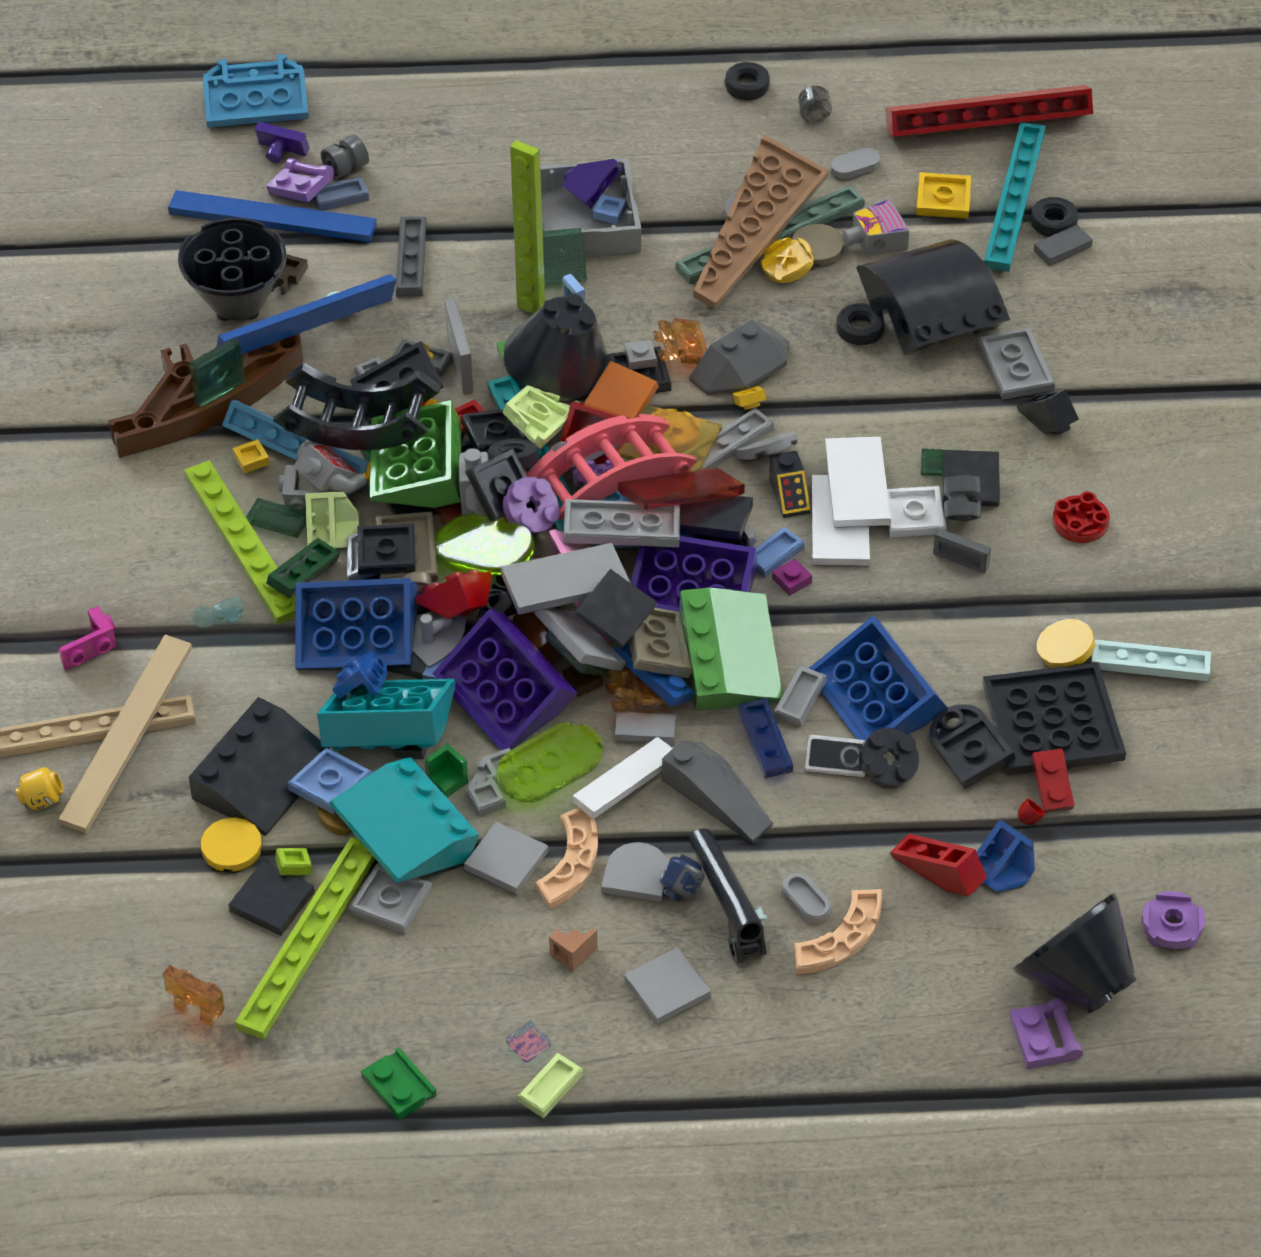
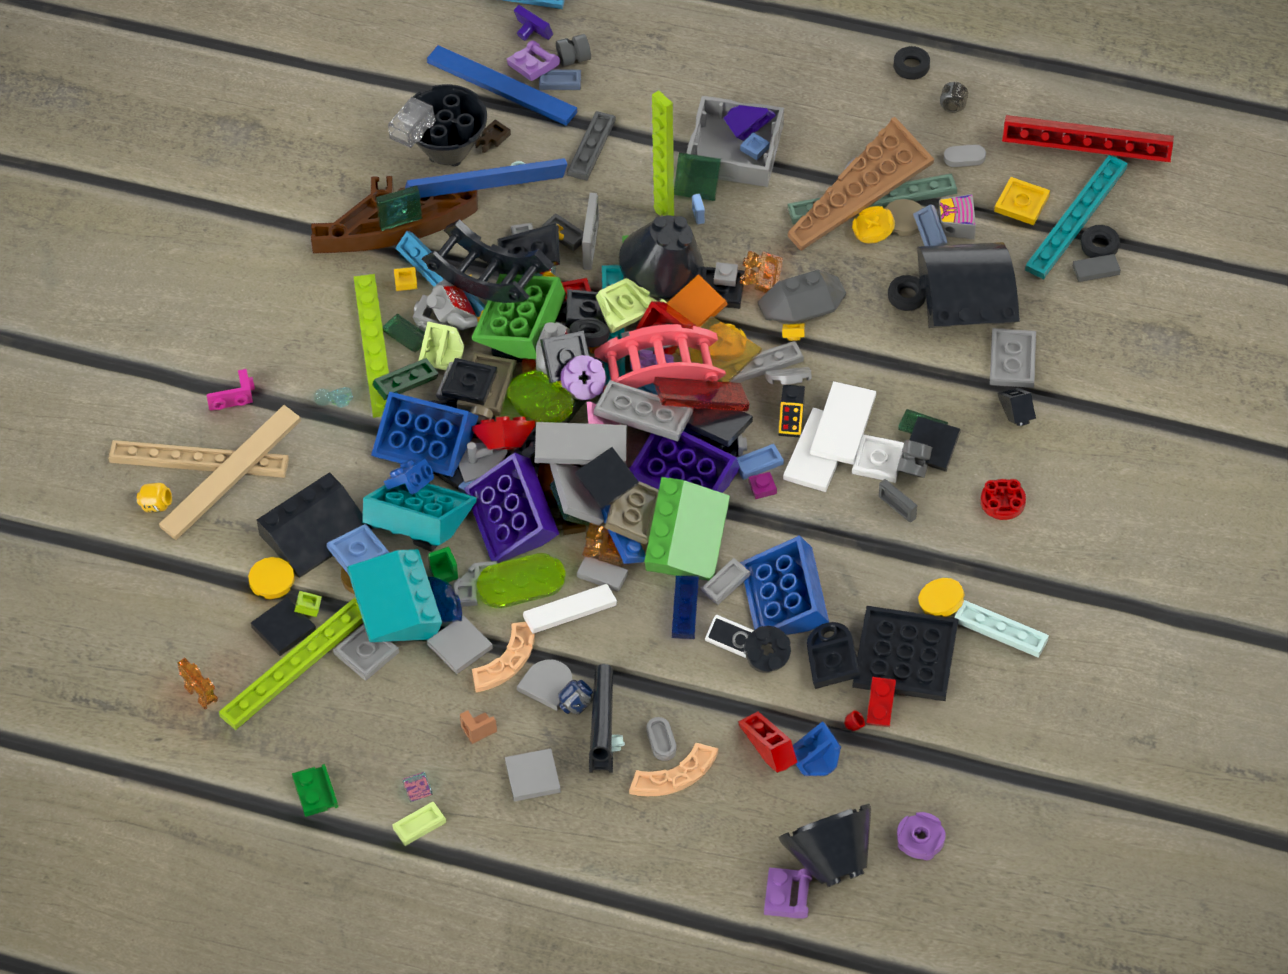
camera: 20 degrees right, 5 degrees up
(197, 269) = (411, 122): none -> clear brick
(472, 807) = (446, 600): none -> clear blue tile
(714, 787) = (632, 633): dark grey wedge -> none
(855, 244) = (930, 226): none -> sand blue tile

